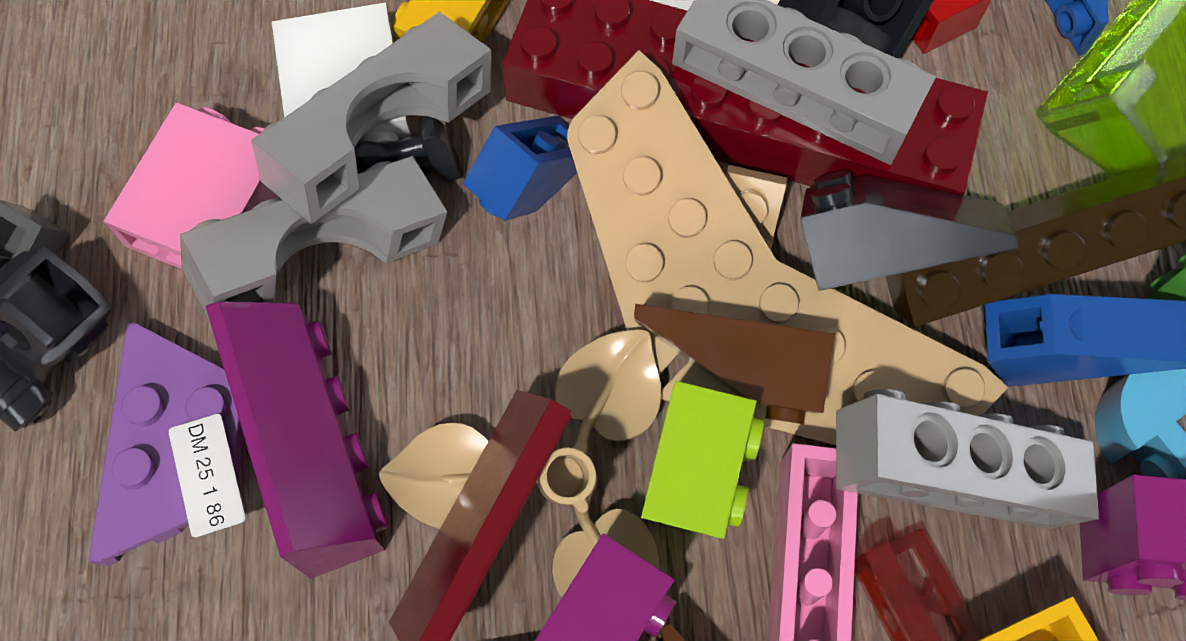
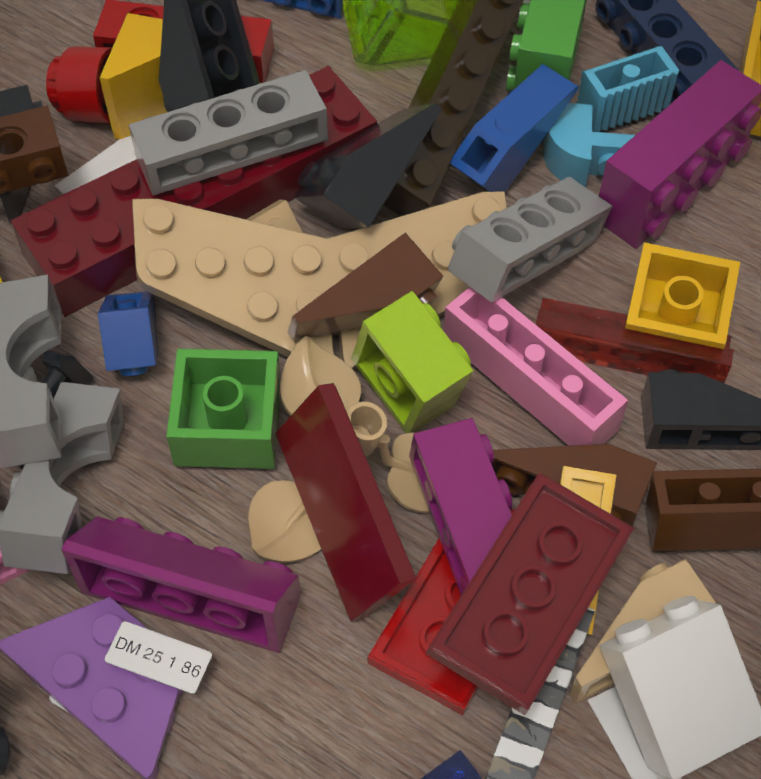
camera: 50 degrees left, 10 degrees down
(507, 319) = (224, 408): none -> bright green brick

